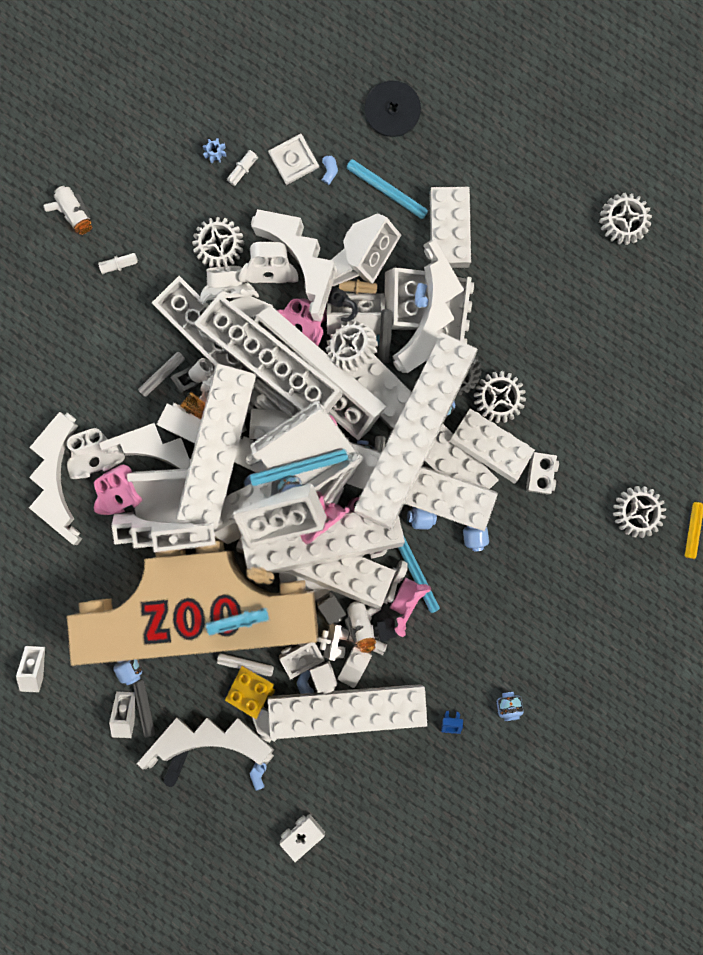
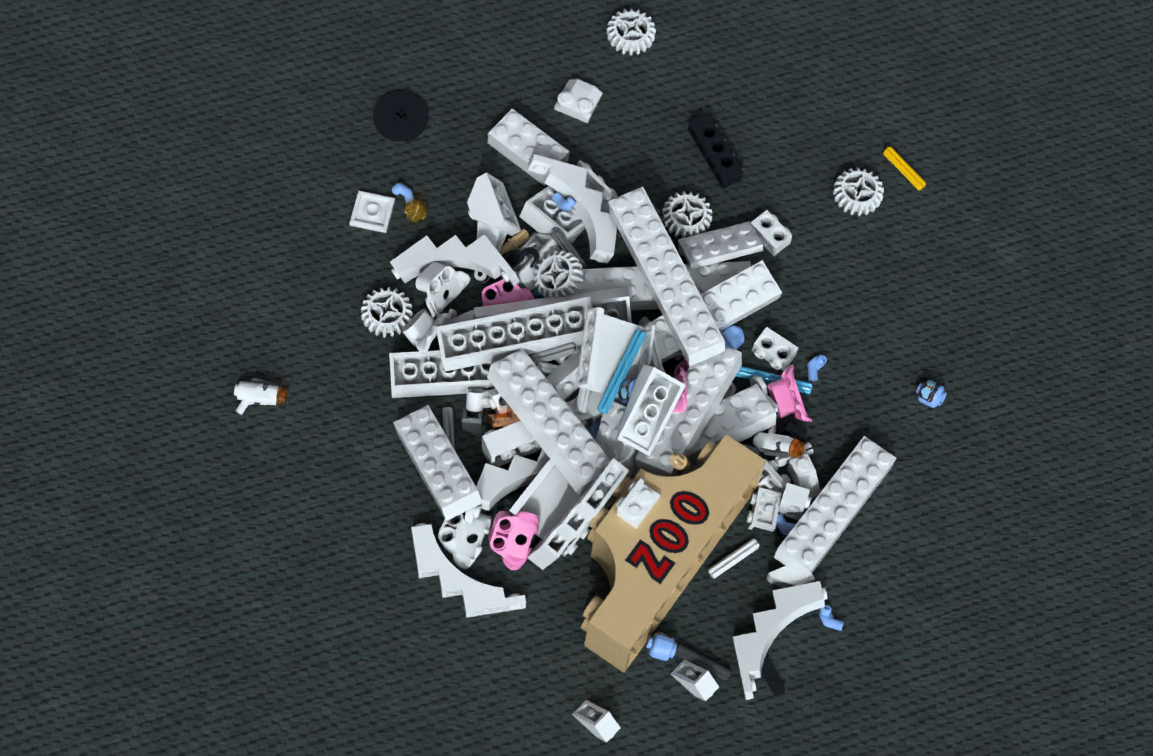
camera: 50 degrees left, 20 degrees down
(117, 263) = (332, 395): white axle -> none
(121, 387) = (437, 462): none -> white brick
(192, 575) = (637, 503): none -> white bracket
(214, 156) = (316, 254): light blue gear -> none
(242, 167) = (345, 250): white axle -> none
(242, 620) = (706, 492): medium azure pin -> none
(249, 692) = (759, 566): yellow hinge -> none
(298, 847) = (912, 614): white brick -> none
(319, 191) = (415, 211): none -> clear yellow gear
(387, 189) = (457, 167): medium azure axle -> none
(447, 557) = (777, 345): none -> white brick
(452, 725) = (910, 445): blue tile -> none
(457, 597) = (814, 365): none -> light blue arm
(475, 538) = (778, 313): light blue head -> none
(528, 230) = (578, 100): none -> white slope
(583, 343) = (707, 126): none -> black brick

